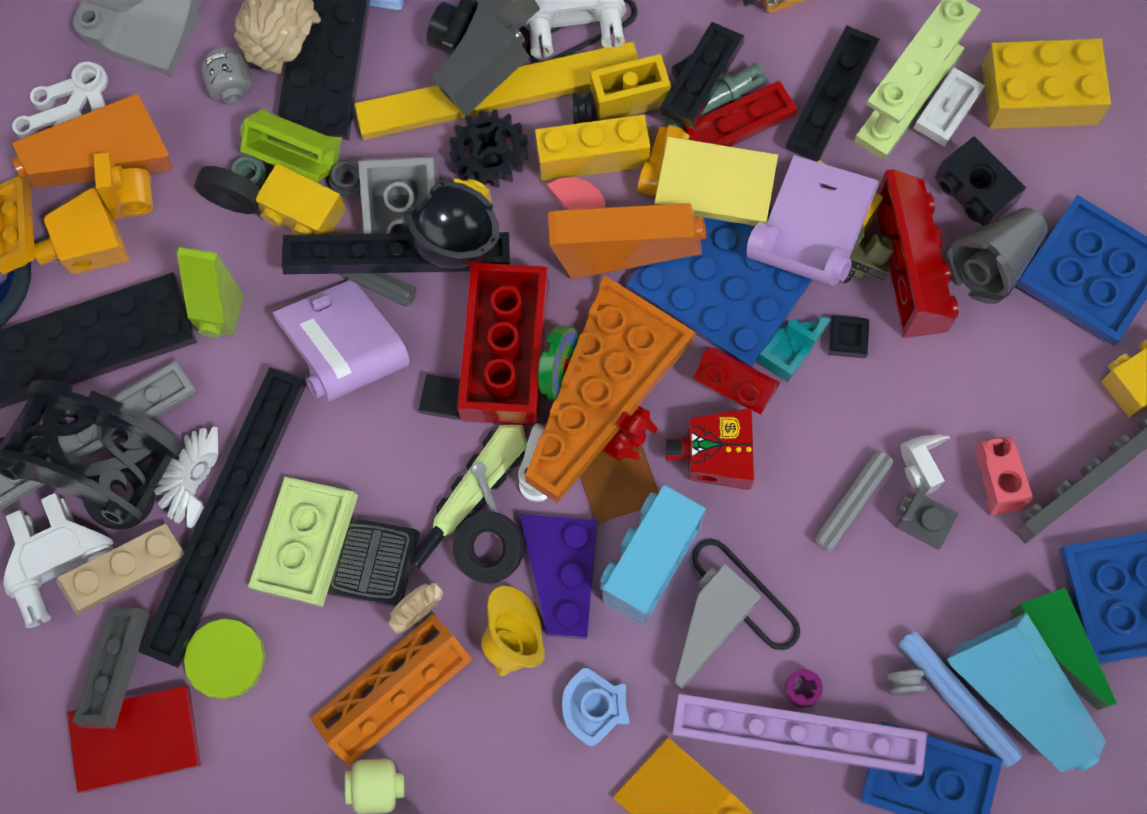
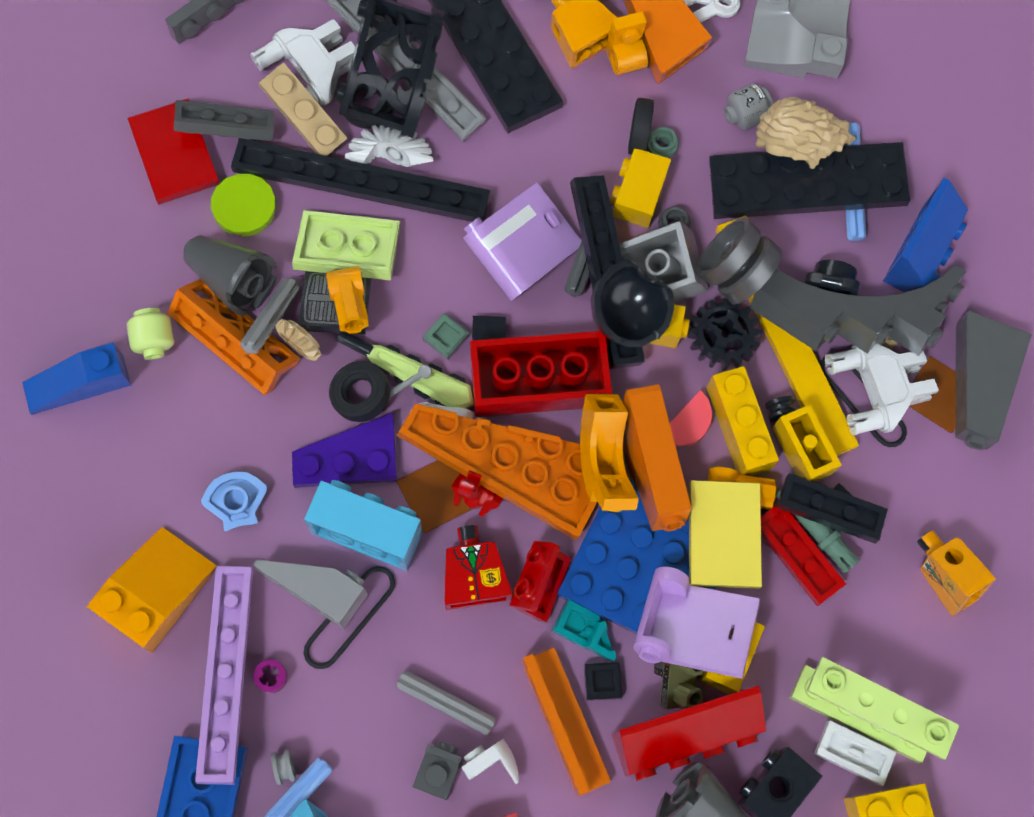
camera: 70 degrees right, 0 degrees up
(209, 292) = (540, 129): lime slope -> none
(258, 143) = (691, 168): lime window -> none
(311, 681) = (232, 272): none -> dark grey cone
(365, 541) = (347, 292): none -> light orange piece
(380, 637) = (269, 316): none -> light grey axle
(418, 108) = (739, 260): none -> flat silver wheel
(436, 444) = (445, 336): none -> sand green tile
(512, 631) = (290, 422): yellow piece -> none
(555, 362) = (535, 418): green tile -> none
(612, 291) = (602, 453): none -> light orange arch
(832, 93) = (845, 637): black plate -> none
(888, 380) = (565, 721): none -> orange fence

